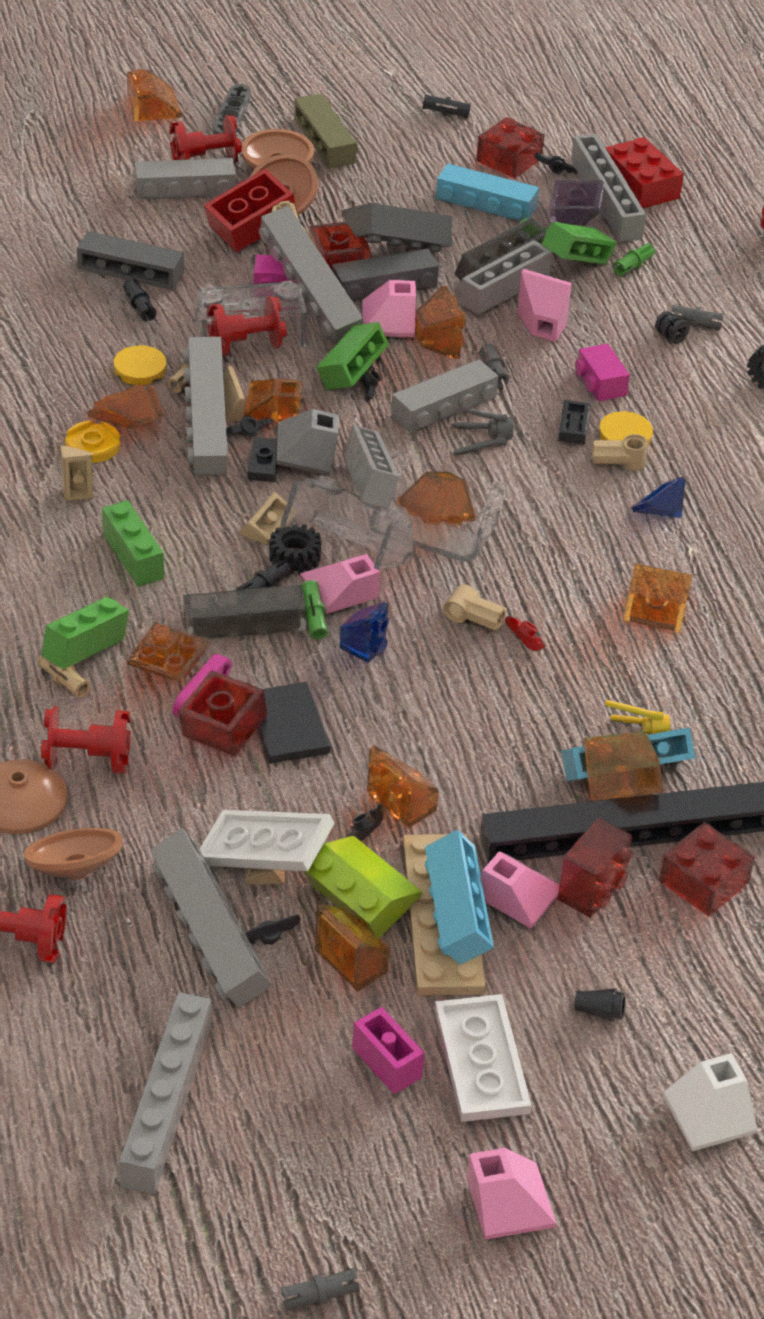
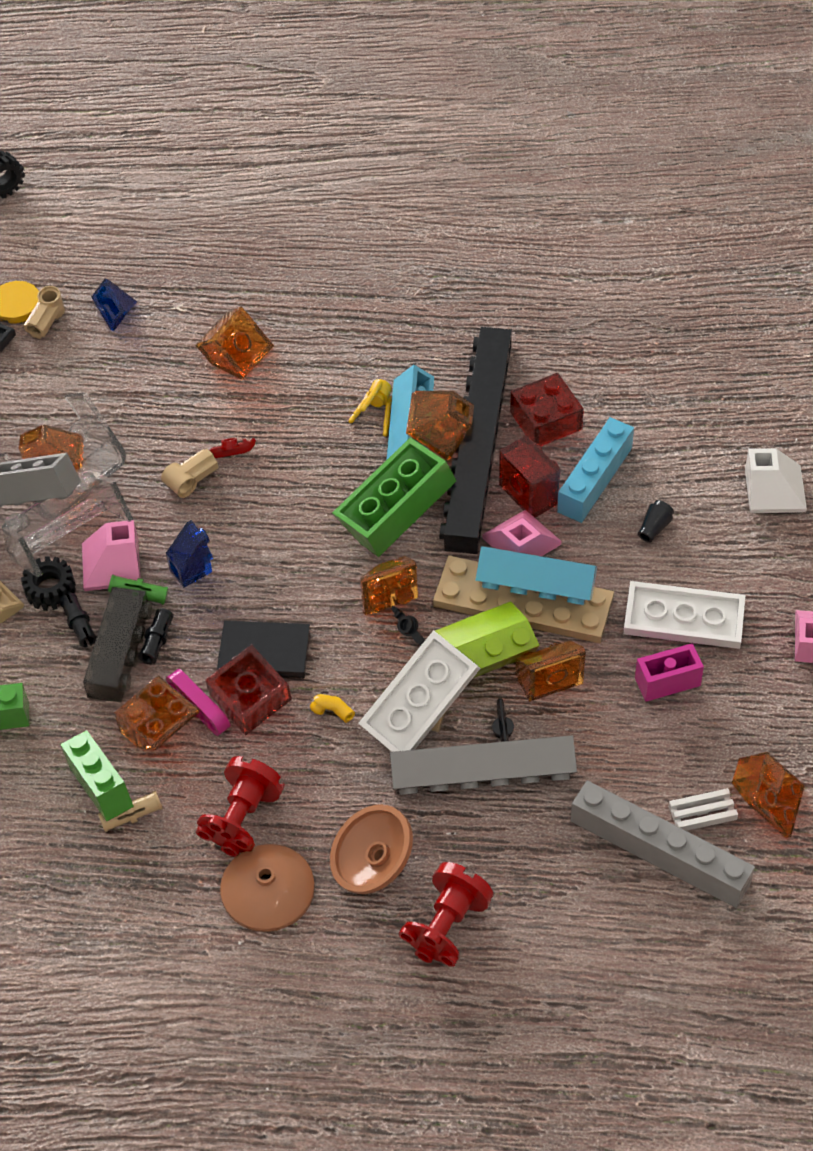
camera: 65 degrees left, 10 degrees up
(241, 1121) = (702, 805): none -> white tile
(242, 786) = (333, 703): none -> yellow arm
(264, 1179) = (769, 790): none -> clear orange slope
(267, 638) = (156, 636): none -> black pin
(509, 762) = (395, 496): none -> bright green slope
(644, 931) = (595, 470): none -> medium azure brick

